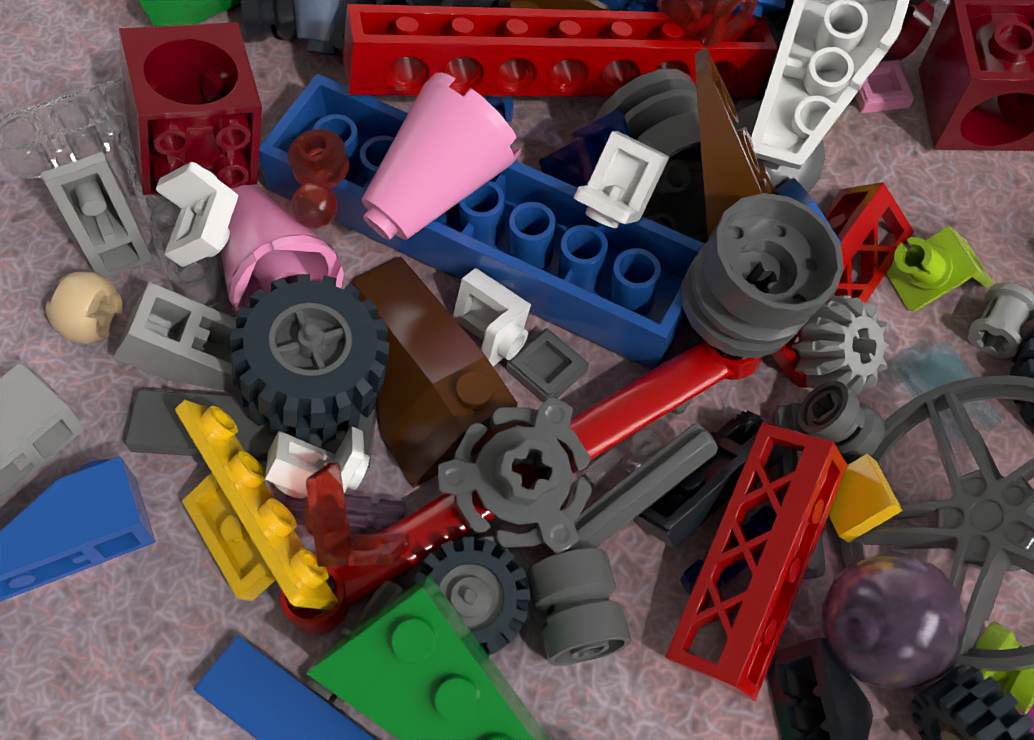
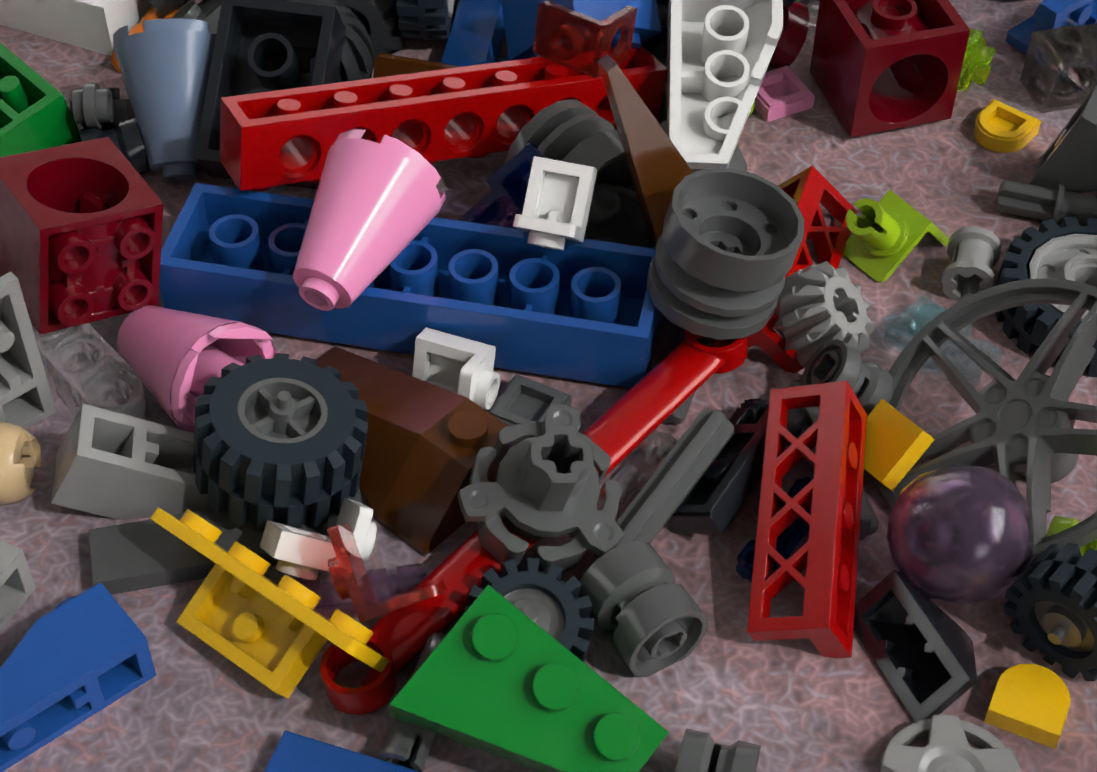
camera: 15 degrees left, 15 degrees down
(203, 216) = (117, 329): white bracket -> none
(314, 202) = (230, 260): clear red plate -> none

